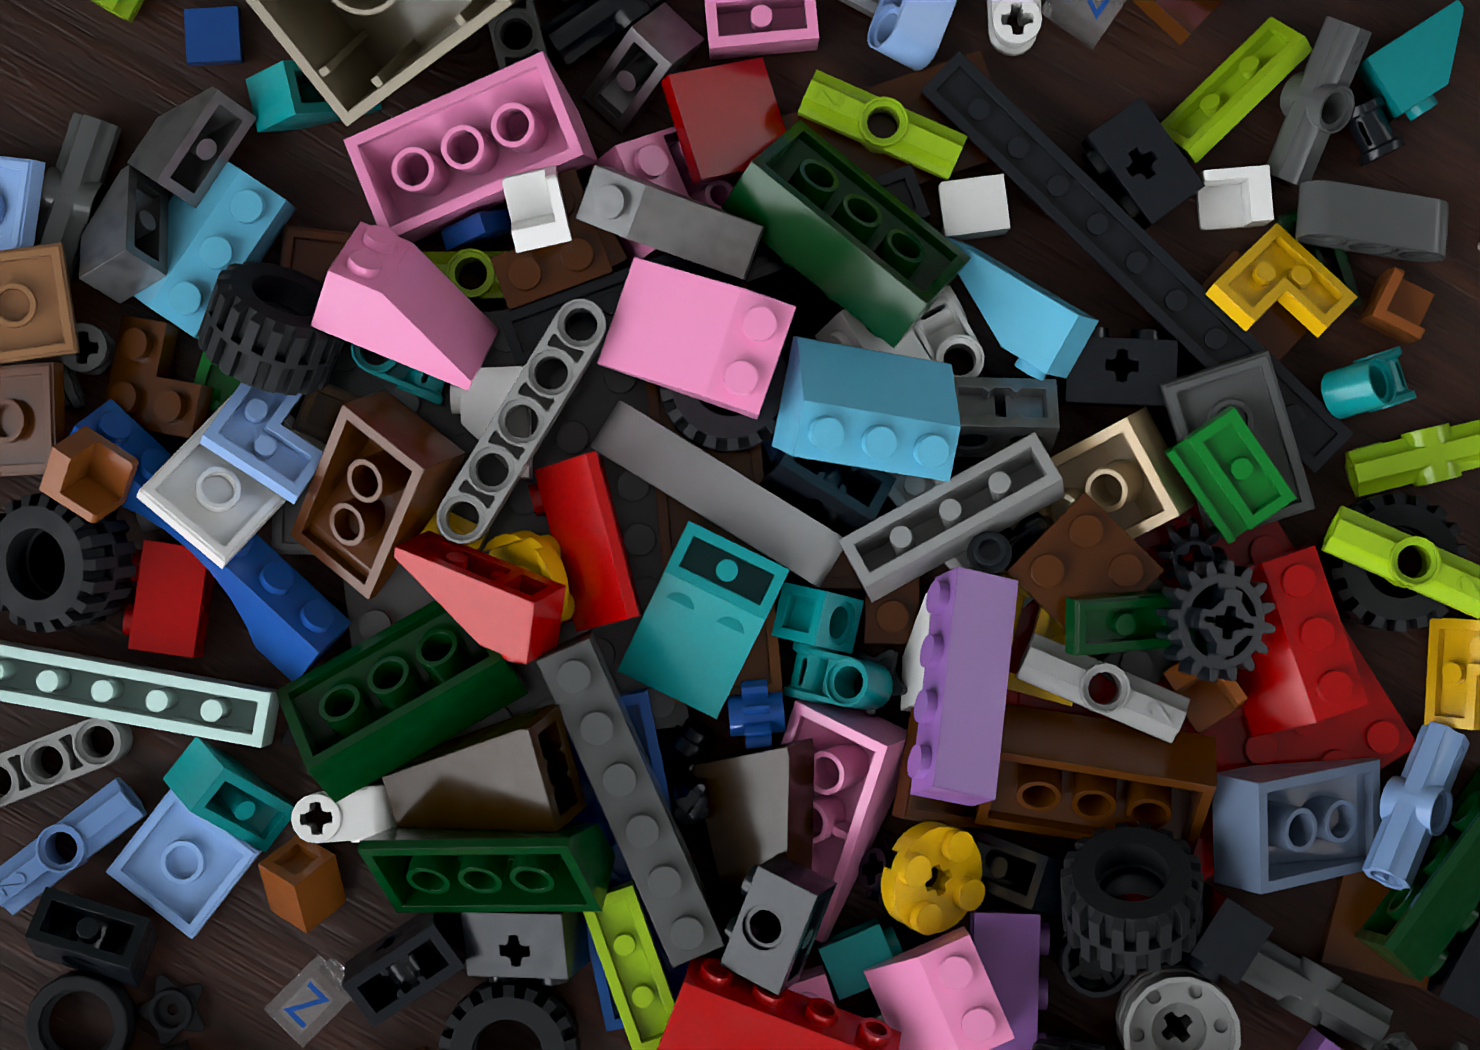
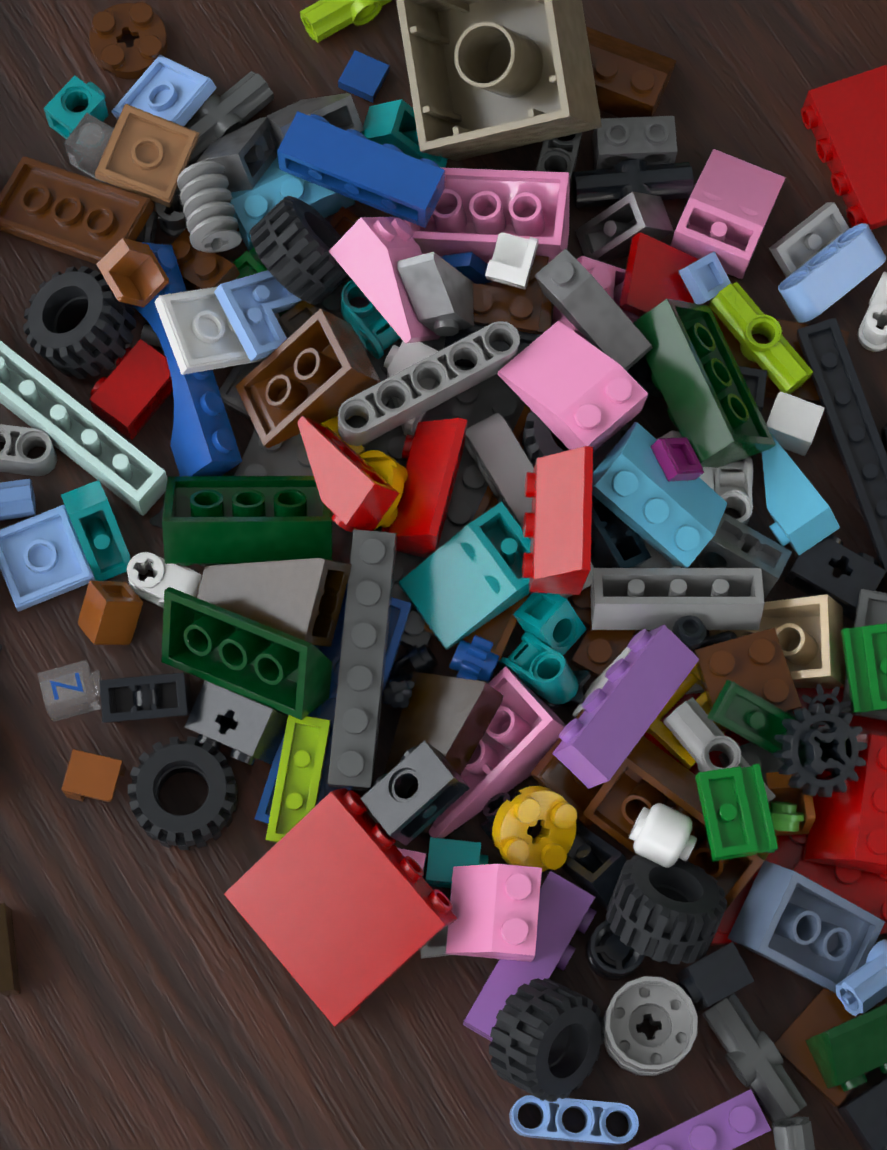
camera: 20 degrees right, 15 degrees down
(126, 337) = (208, 207): none -> light grey piece
(286, 186) = (361, 168): none -> blue brick
(473, 303) = (438, 293): none -> flat silver slope
(772, 521) = (559, 522): none -> slope
(776, 85) = (704, 278): none -> light blue plate
(868, 356) = (677, 459): none -> magenta tile
(1086, 819) = (662, 835): none -> white head
(1158, 753) = (736, 812): none -> green plate
(1209, 713) = (785, 816): none -> bright green plate

